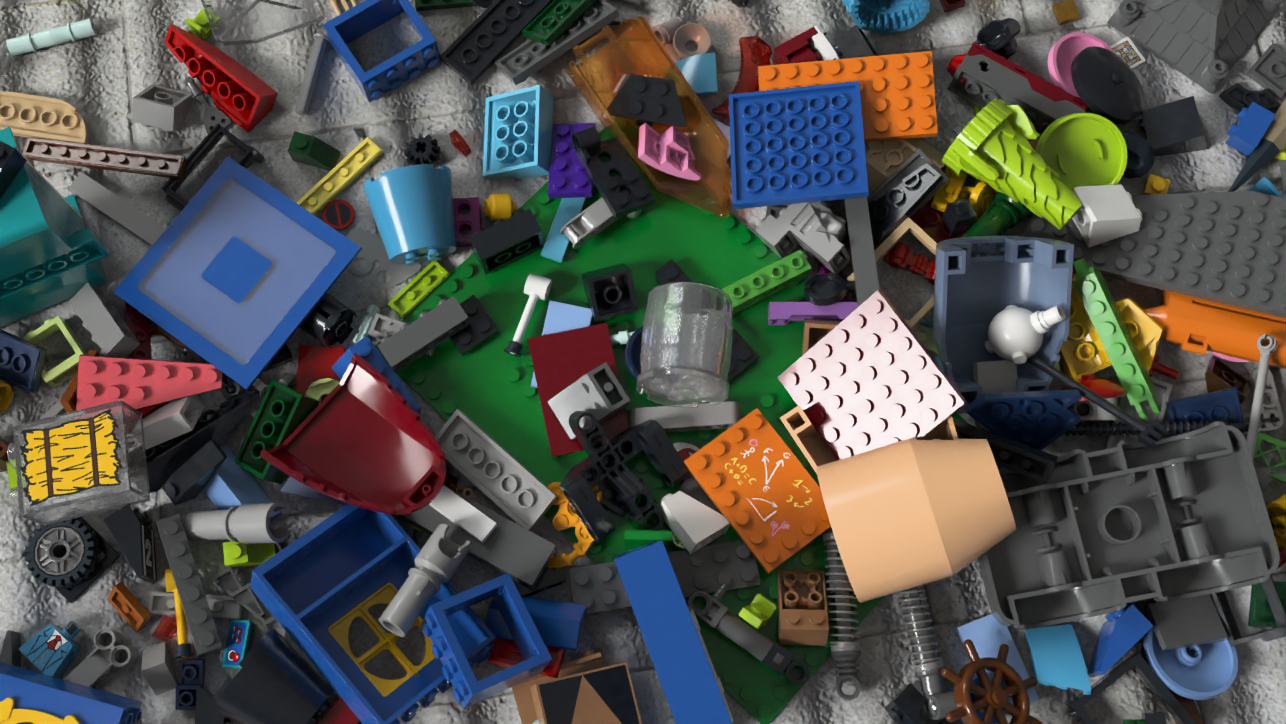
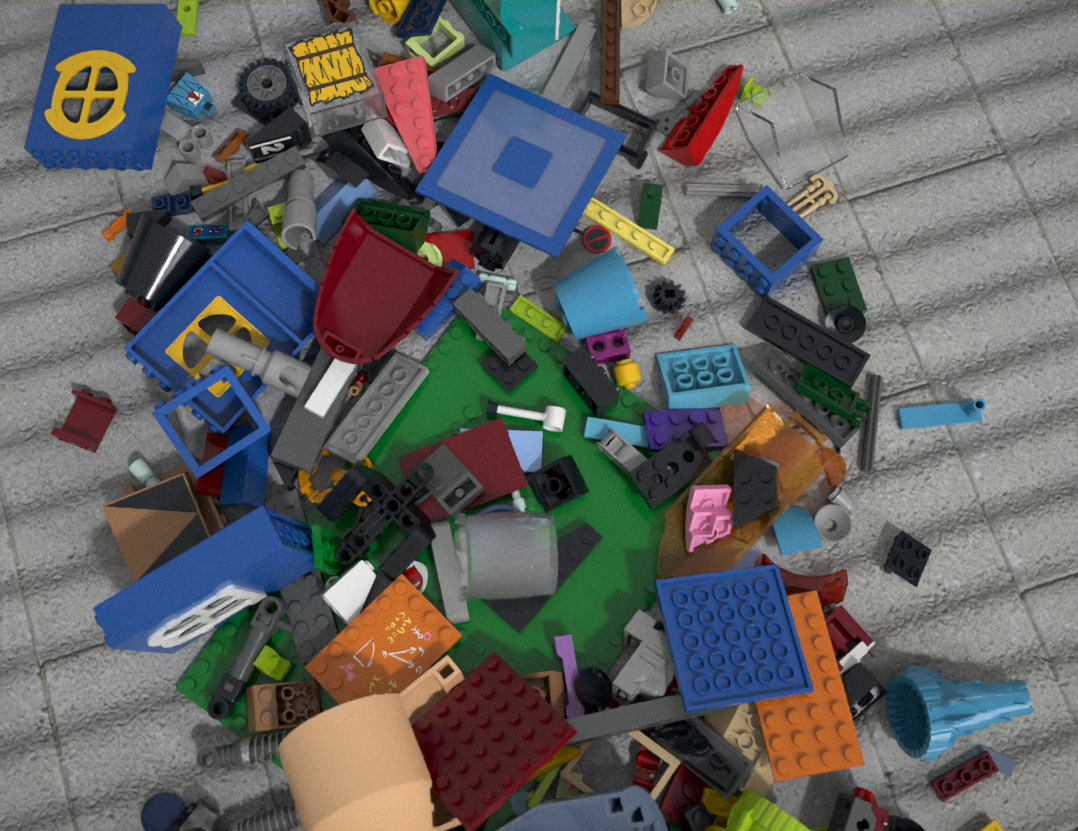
camera: 80 degrees right, 0 degrees up
(768, 281) = (593, 629): bright green brick -> none

